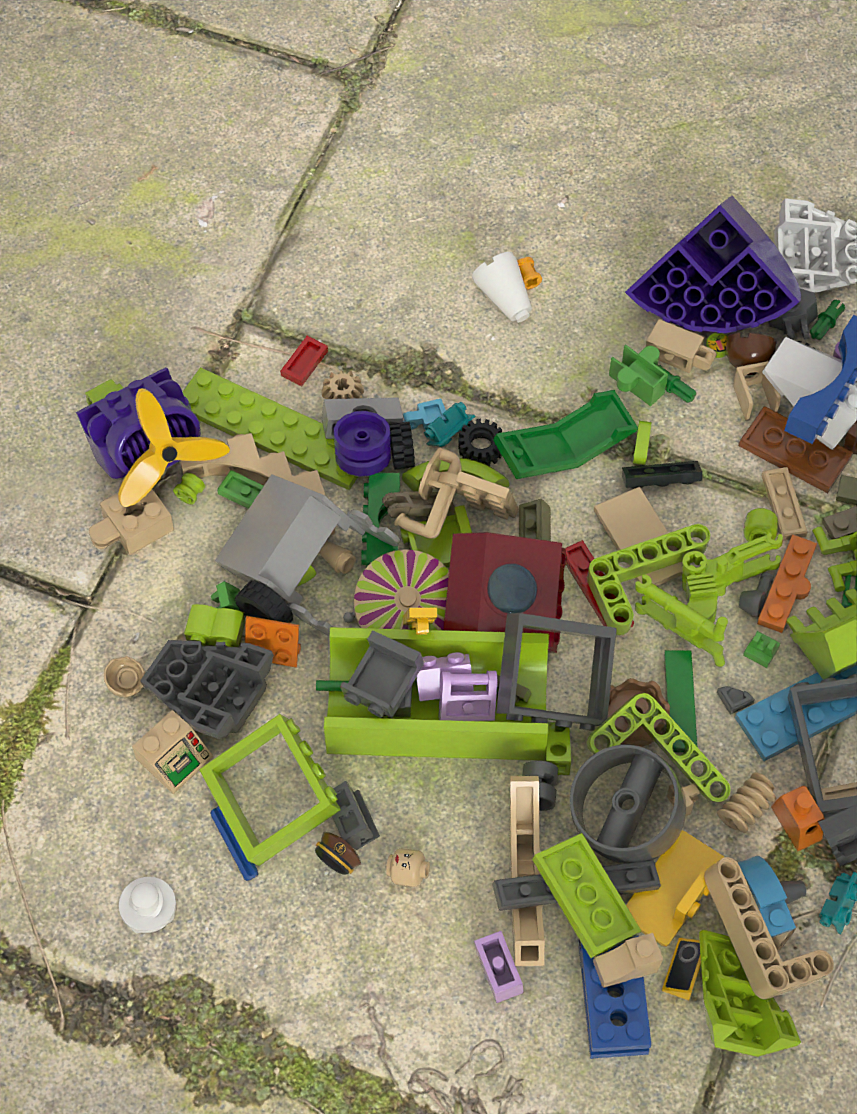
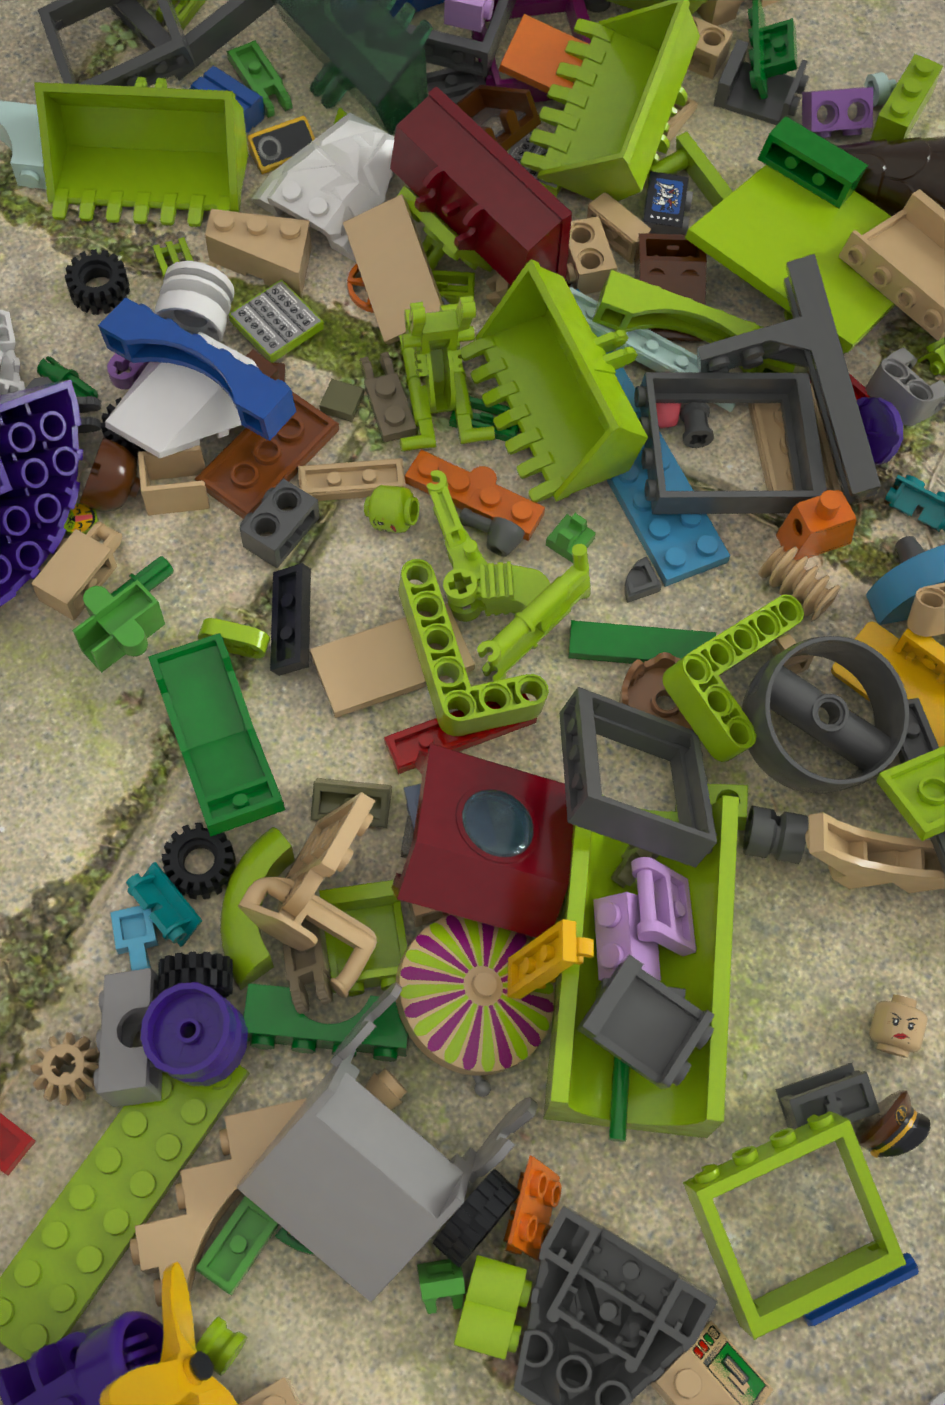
camera: 90 degrees left, 5 degrees up
(733, 464) = (286, 526): none -> dark grey brick

